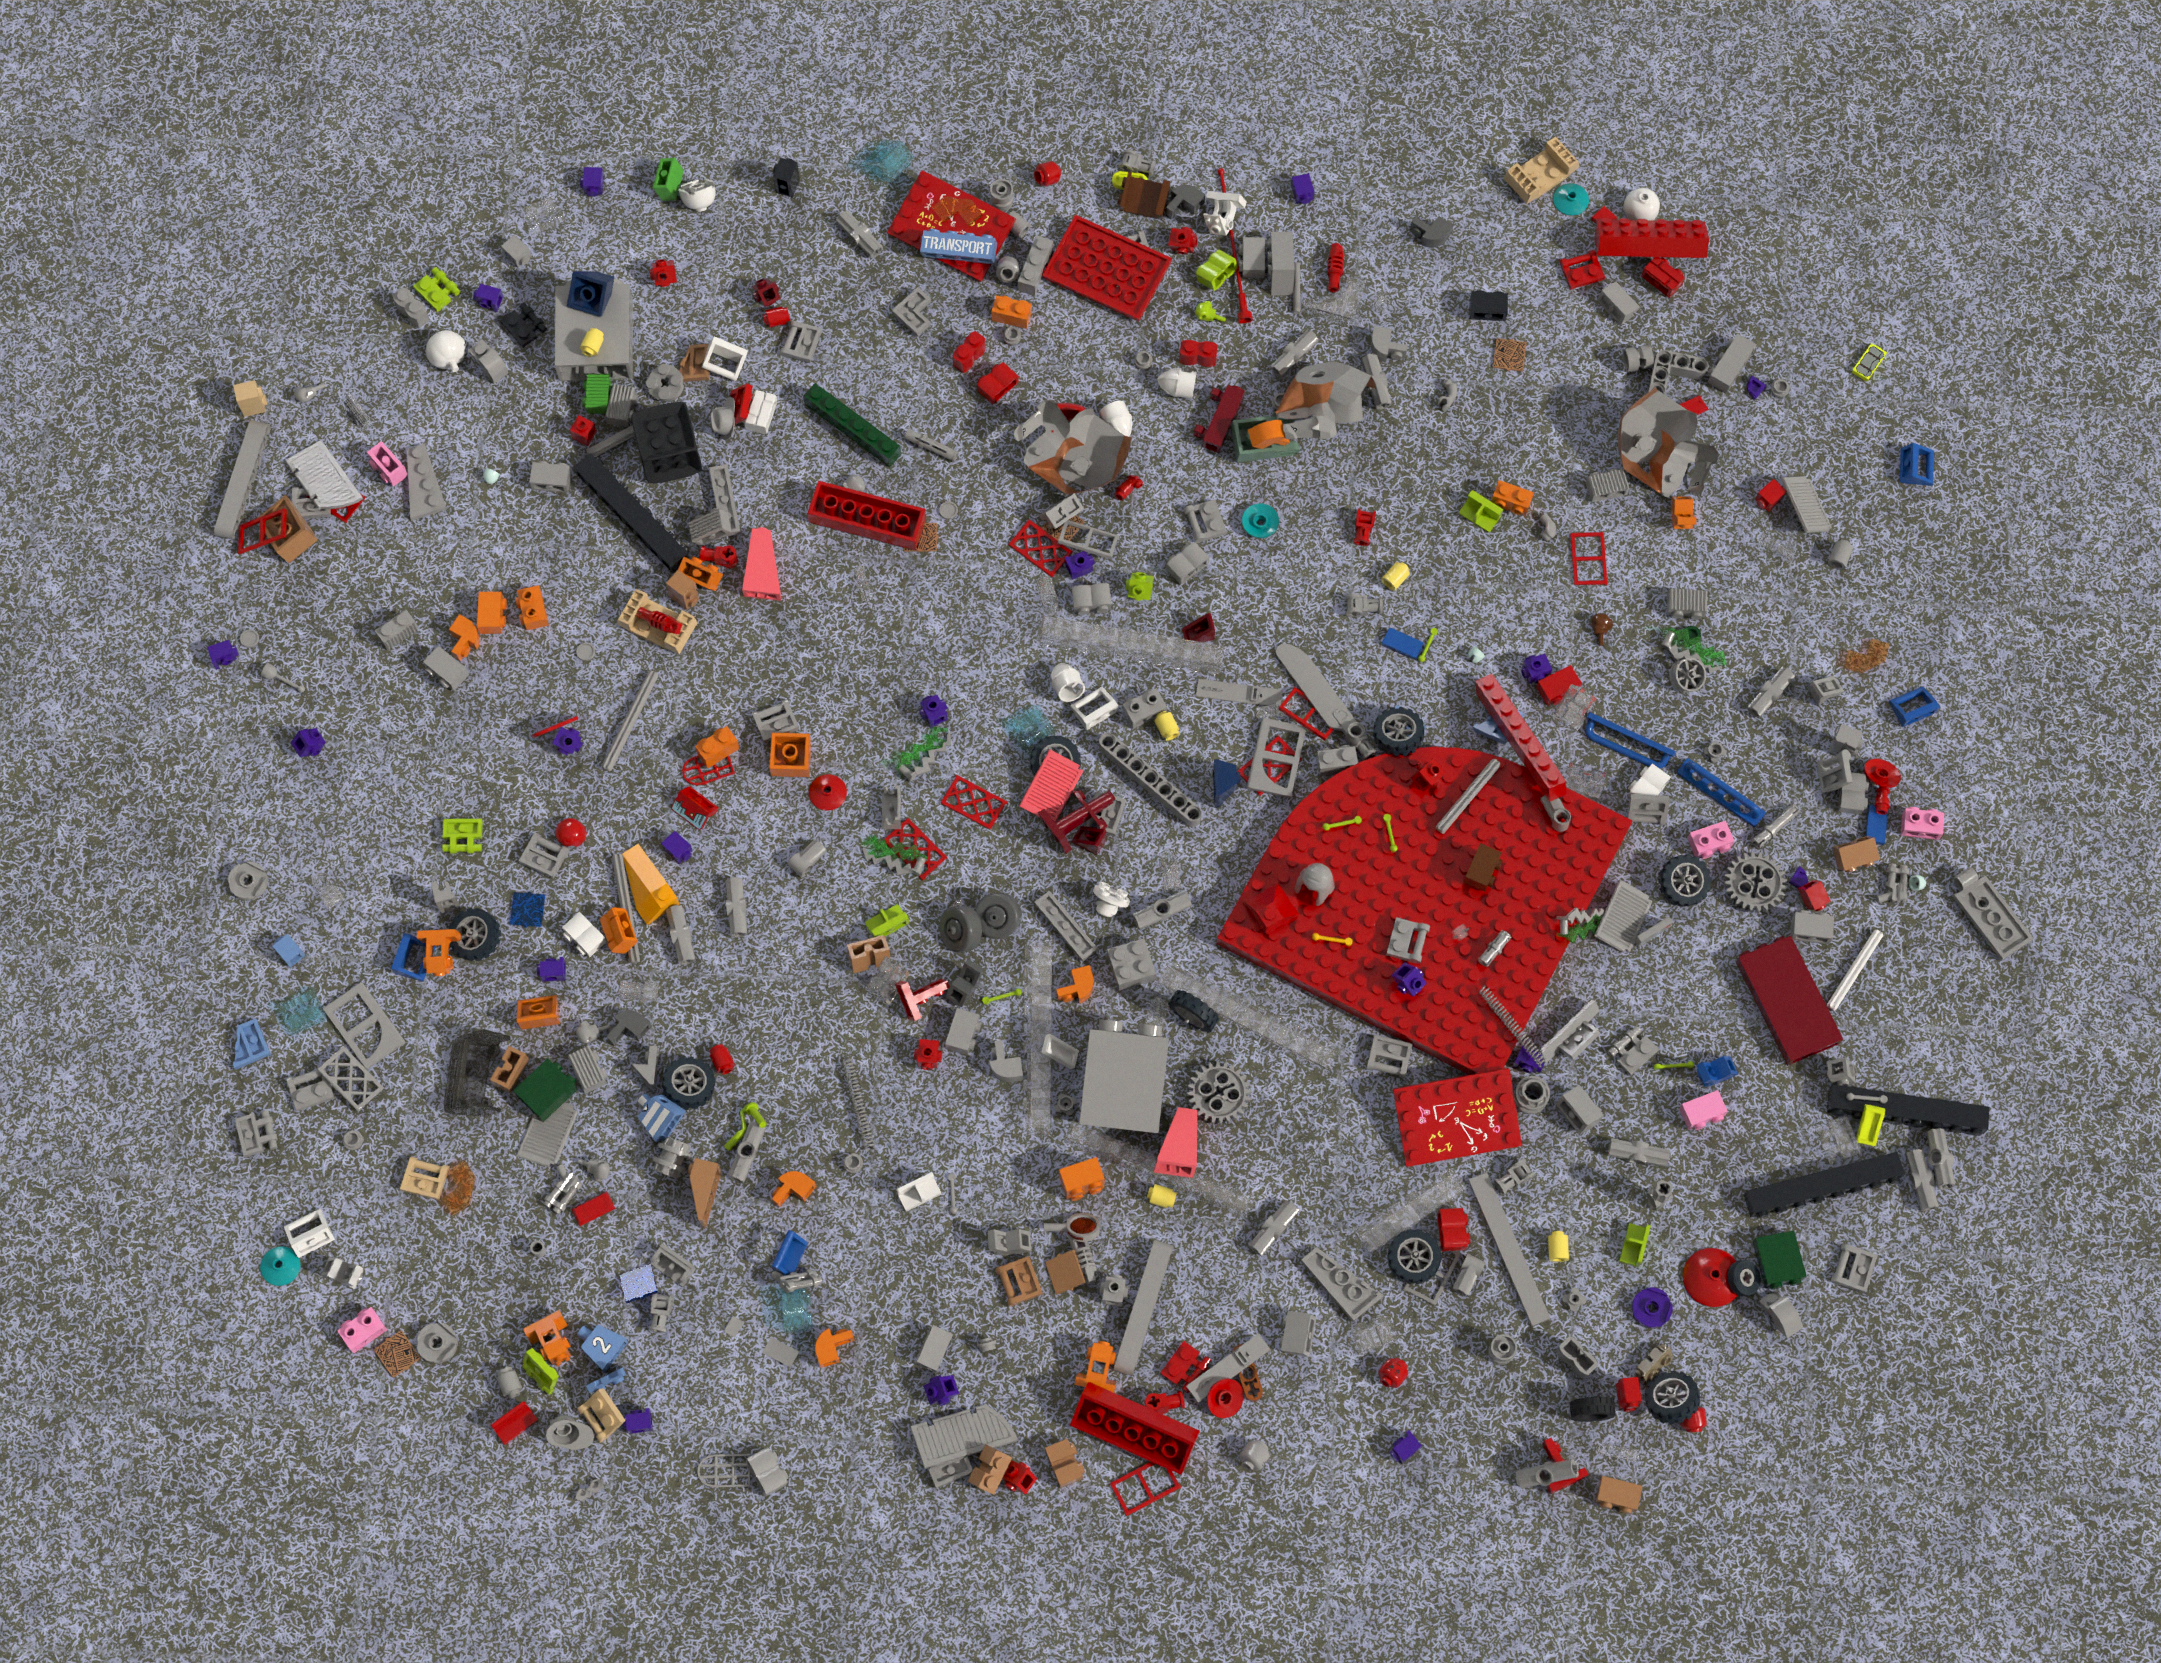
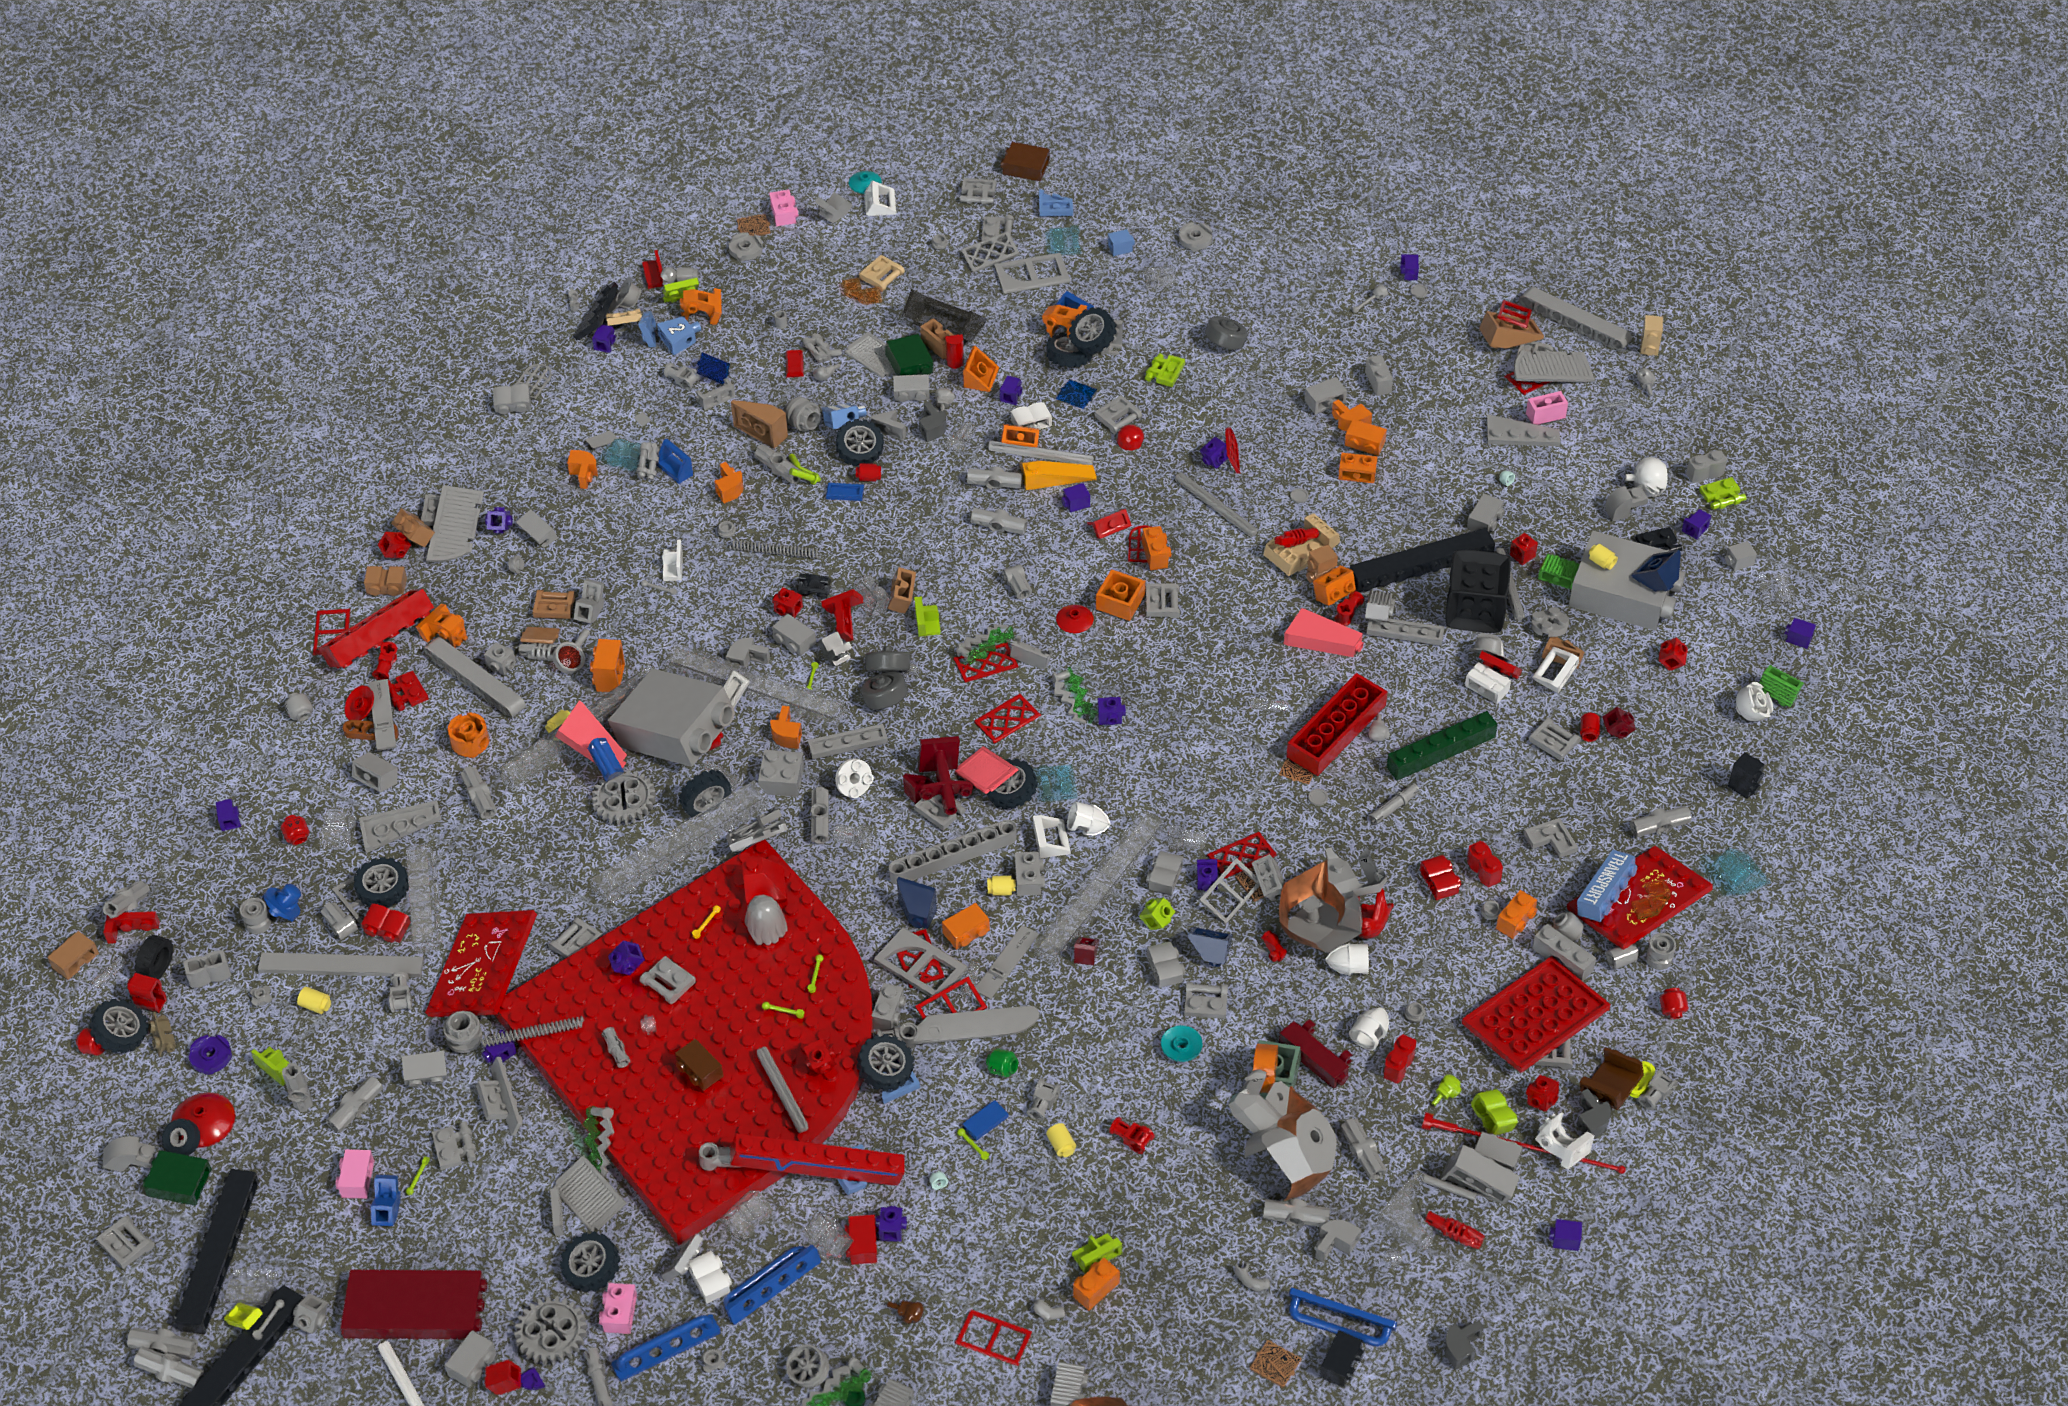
camera: 115 degrees right, 20 degrees down
(191, 1101) = (1025, 161): none -> reddish brown brick
(308, 742) = (1296, 290): dark purple brick -> none
(392, 791) = (1226, 332): none -> dark grey wheel
(478, 899) = (1083, 324): none -> black wheel
(525, 1041) = (954, 351): none -> red brick
(526, 1393) = (669, 275): none -> light grey piece
(607, 1447) = (597, 312): none -> black wing
(621, 405) = (1539, 584): light grey brick -> none
(753, 1073) = (845, 491): none -> blue tile
(891, 1041) = (814, 583): none -> black piece
(1149, 533) = (1211, 945): none -> slope
(1200, 1114) = (605, 758): none -> blue tile
(1217, 956) = (755, 832): none -> light grey wing
(1217, 1269) = (468, 735): none -> orange brick
(1225, 733) = (966, 926): none -> orange brick
(1345, 650) = (1002, 1062): none -> green head
(1444, 321) = (1387, 1324): none -> blue piece
(1478, 1331) = (283, 901): none -> blue plate

